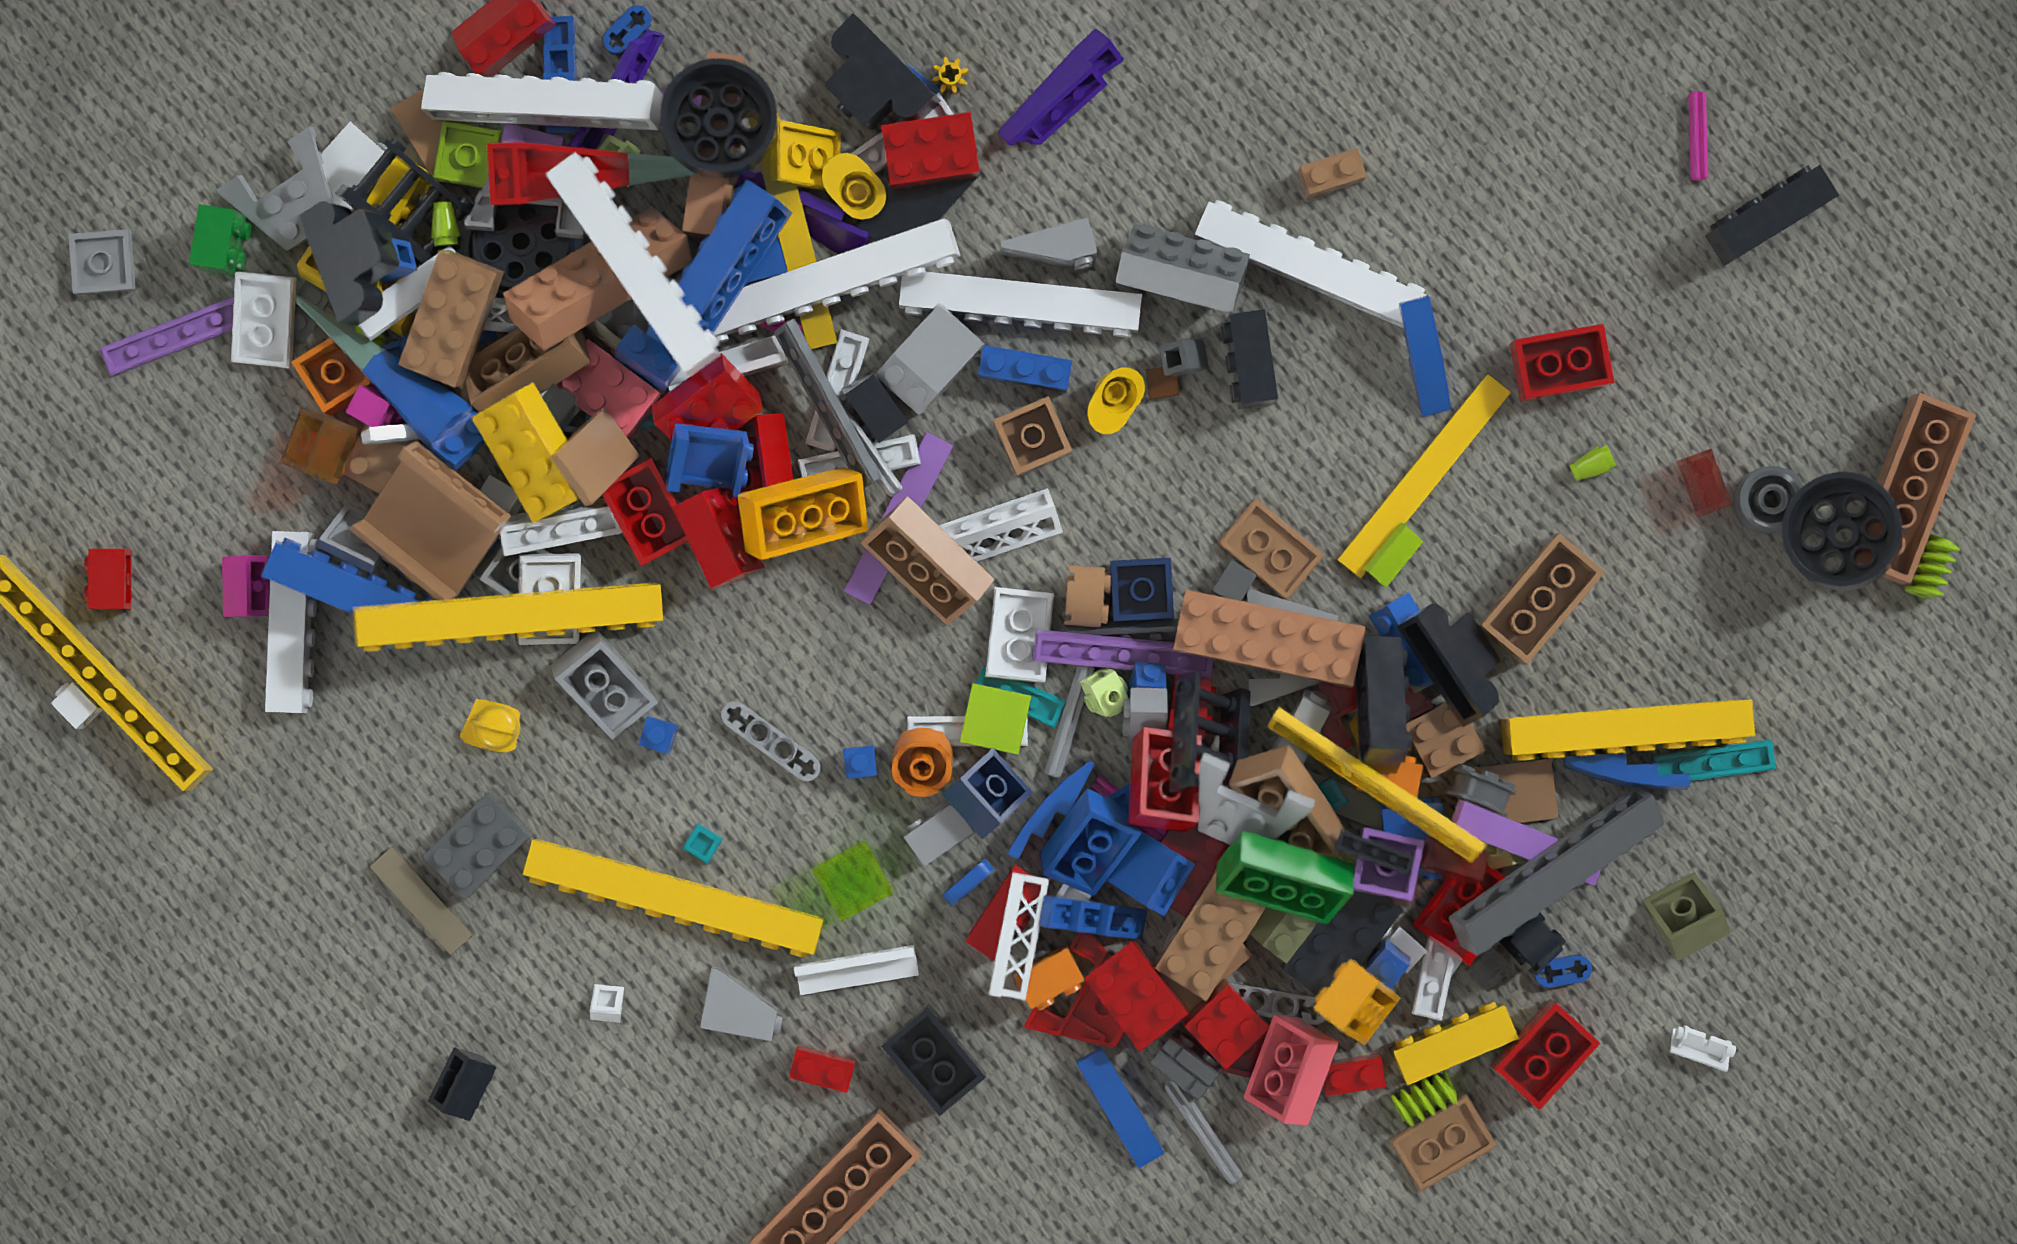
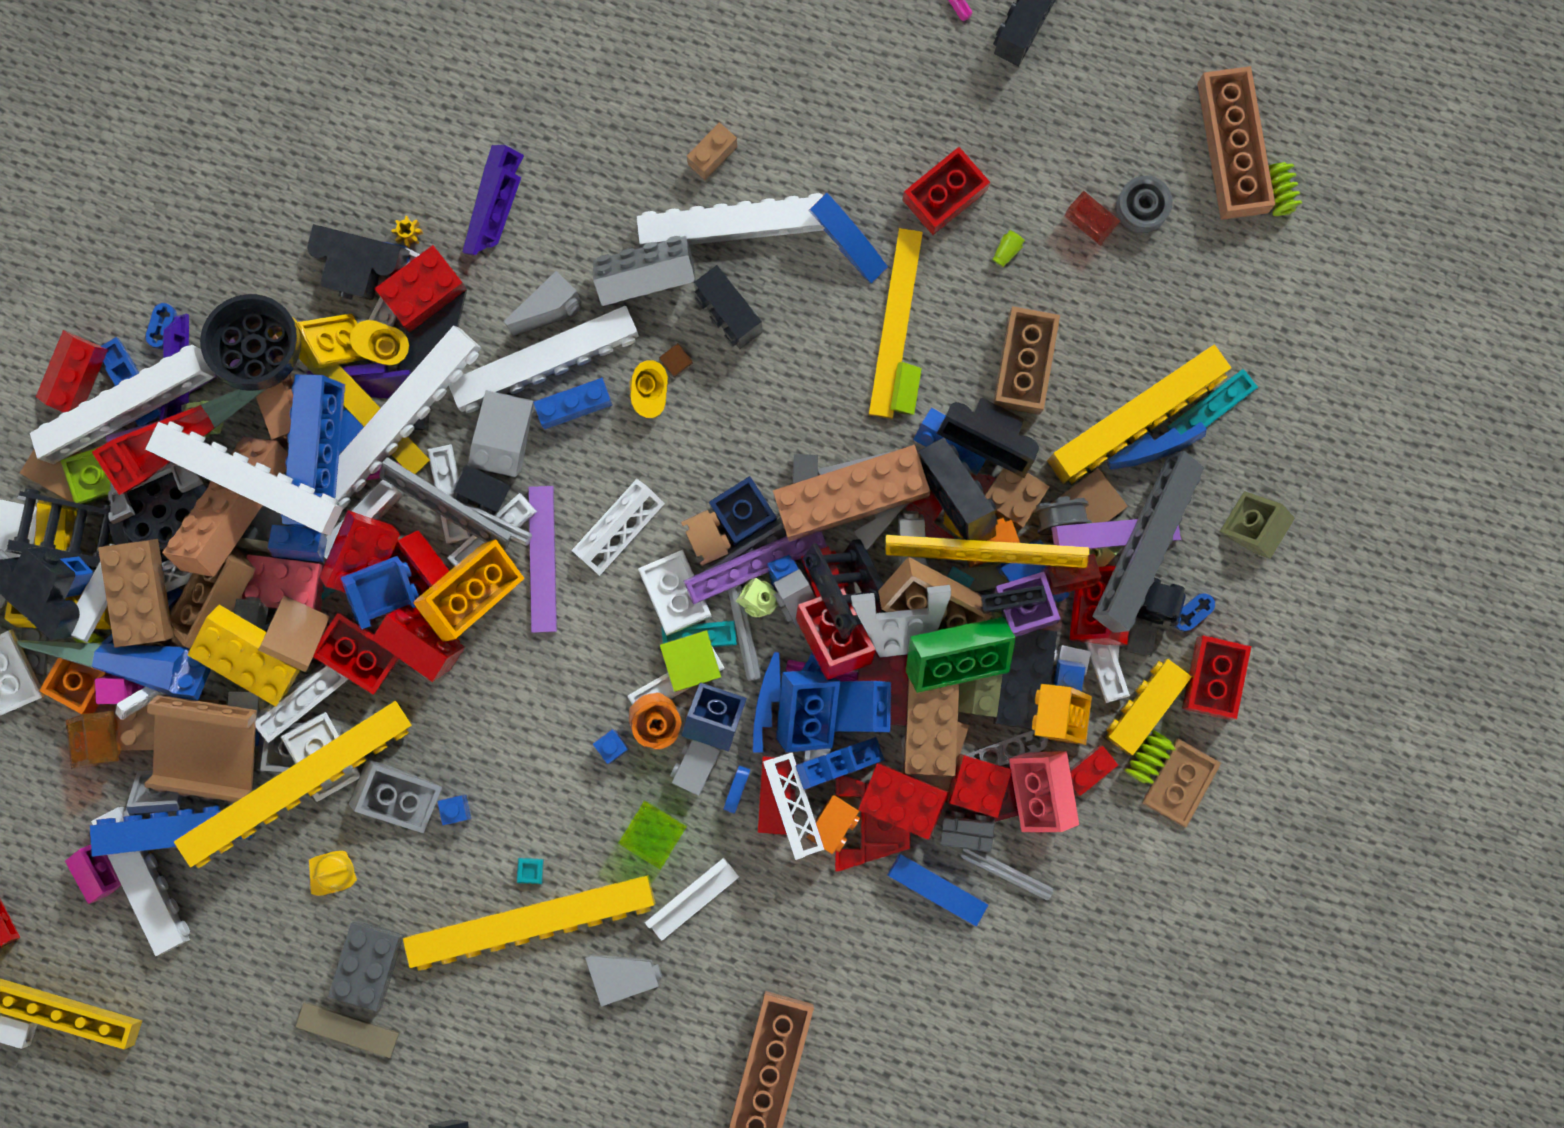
camera: 30 degrees left, 5 degrees down
(444, 225) = (98, 530): lime cone -> none
(606, 1003) = (524, 1028): white slope -> none
(768, 745) = (539, 768): light grey beam -> none
(822, 1068) = (707, 985): red brick -> none
(927, 561) = (577, 575): medium nougat brick -> none
(934, 1060) = (784, 932): black brick -> none
(1032, 436) = (604, 447): medium nougat brick -> none
(1183, 357) = (680, 333): dark grey brick -> none
(1270, 549) = (818, 433): medium nougat tile -> none
(1694, 1046) = (1315, 612): white hinge -> none
(1837, 492) = (1186, 171): black wheel -> none

